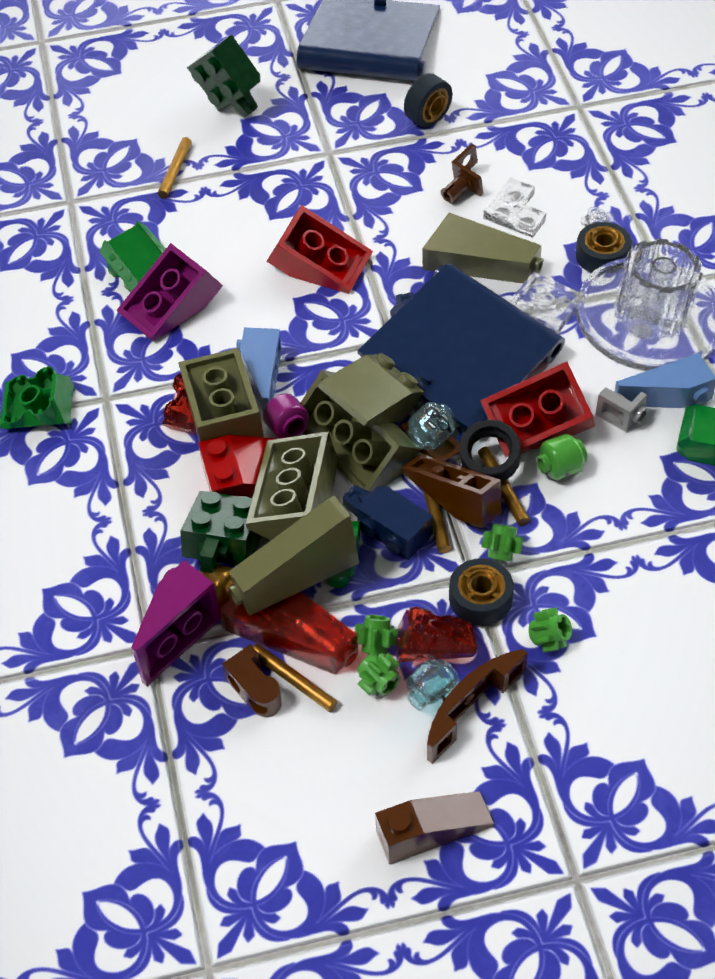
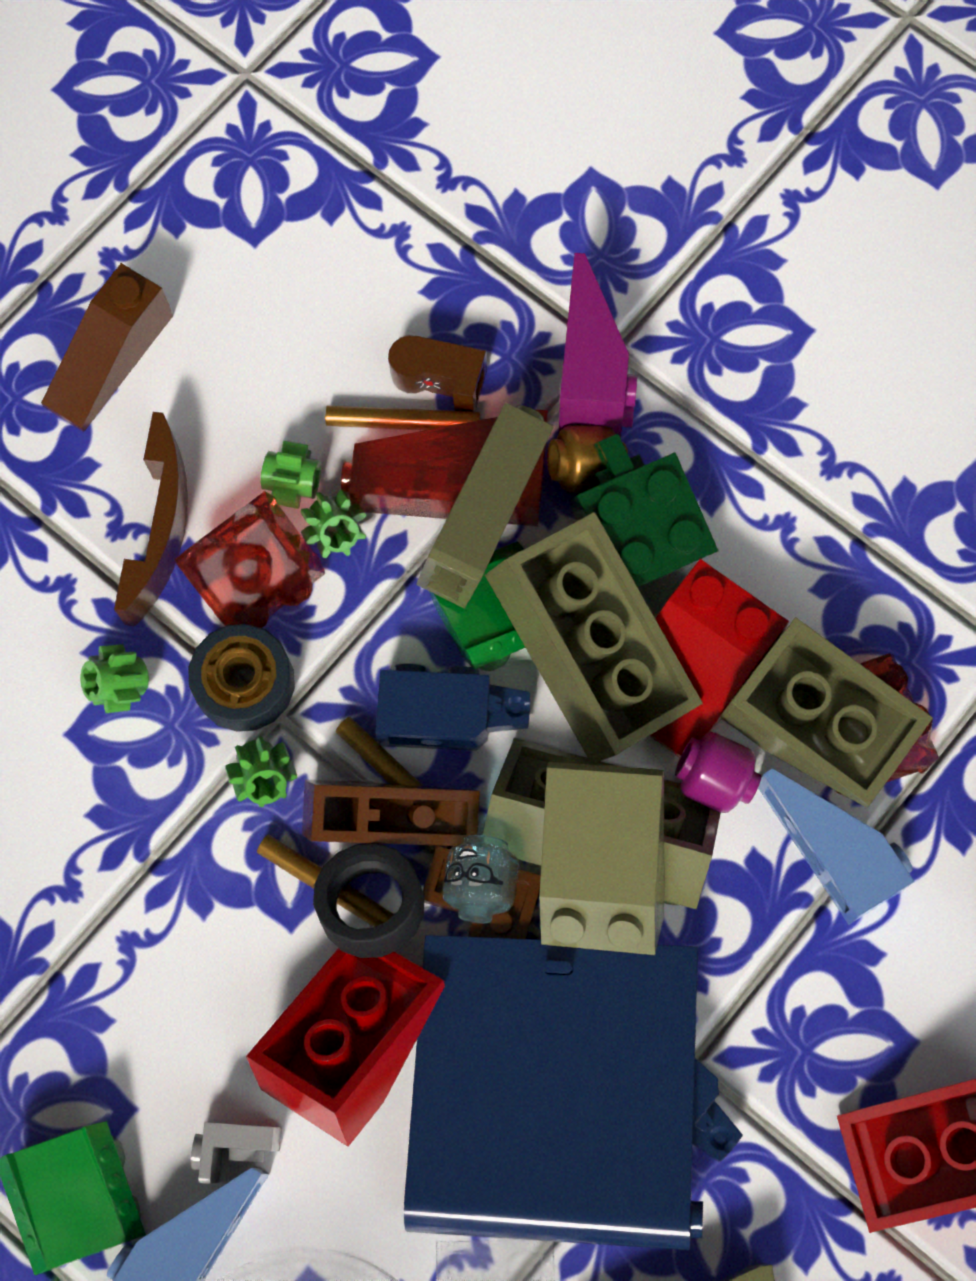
camera: 145 degrees right, 20 degrees up
(431, 684) = (211, 497): clear light blue head -> none
(562, 457) = (266, 977): bright green head -> none

